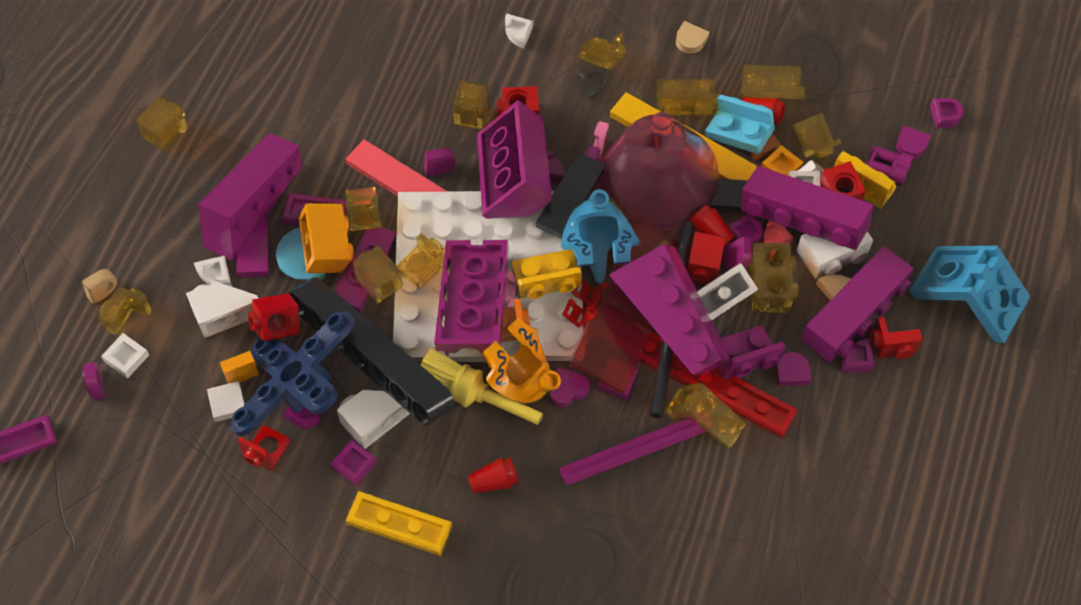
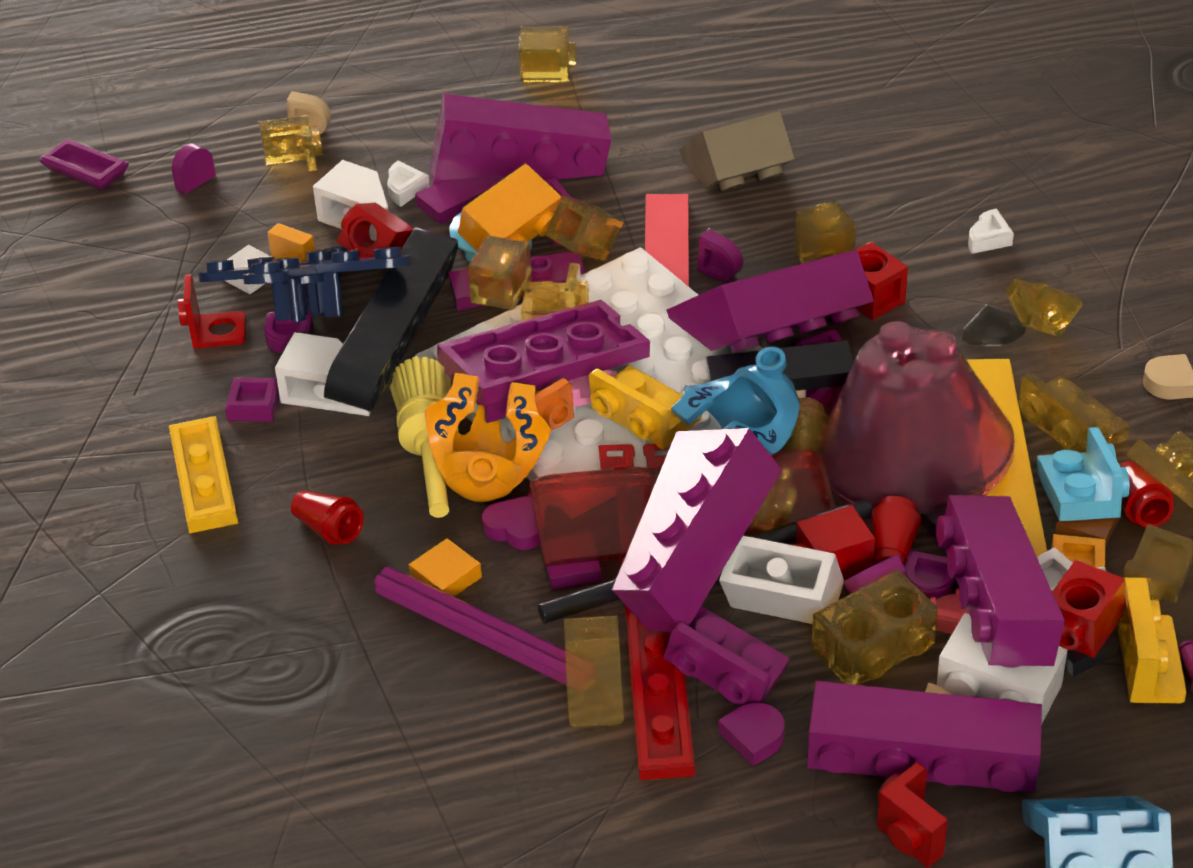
camera: 60 degrees right, 20 degrees down
(125, 355) = (243, 177): white tile -> none
(354, 92) = (739, 151): none -> dark tan slope
(577, 441) = (446, 568): none -> light orange tile
(858, 358) = (846, 798): magenta tile -> none

